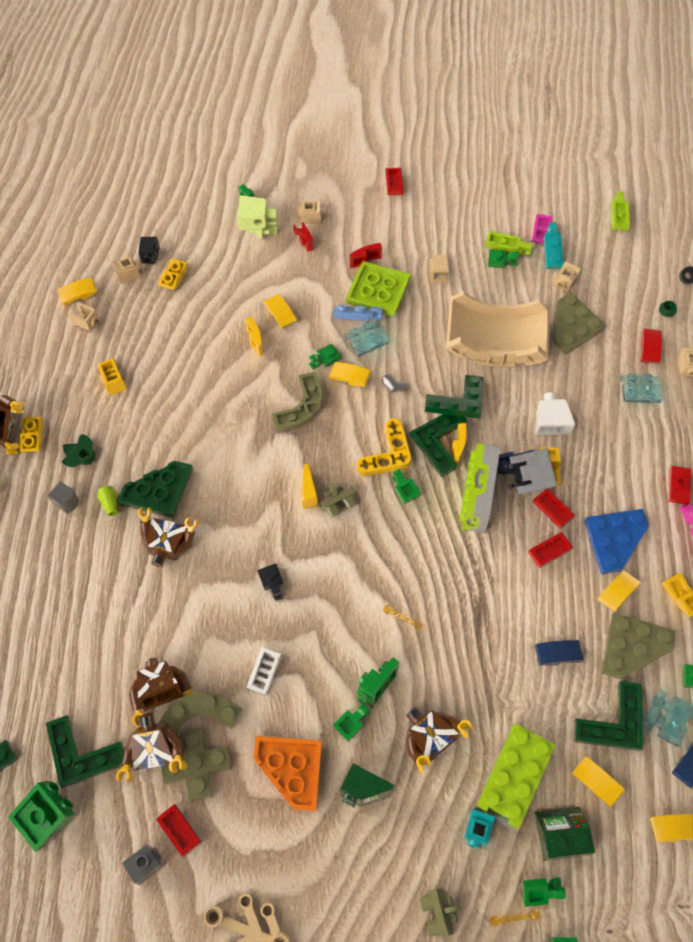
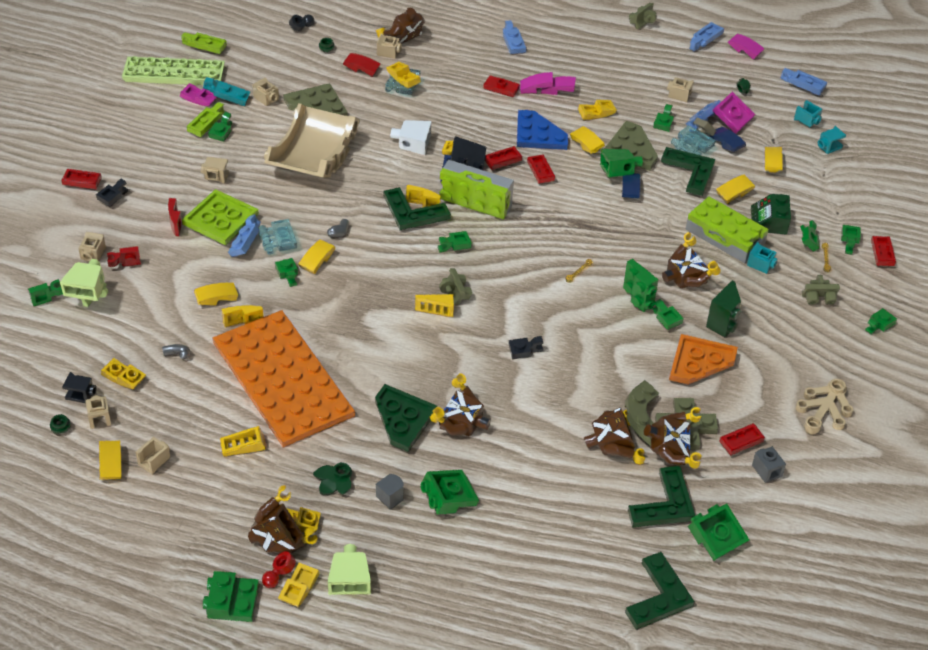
camera: 80 degrees left, 15 degrees down
(69, 546) = (448, 491): none -> green plate
(108, 499) = (402, 456): lime cone -> none
(112, 250) = (60, 424): none -> dark green plate
(192, 386) = (283, 378): none -> orange plate
(208, 302) = (183, 350): none -> flat silver arm
(264, 651) = (602, 357): white slope -> none
(306, 409) = (341, 289): olive plate -> none
(382, 205) = (112, 194): none -> black plate
(396, 453) = (388, 240): yellow beam -> none
(467, 406) = (384, 181): dark green plate -> none
(569, 202) = (171, 70): none -> yellowish green plate
(587, 631) = (619, 162): none -> green torso
(643, 383) = (402, 74): none -> yellow slope

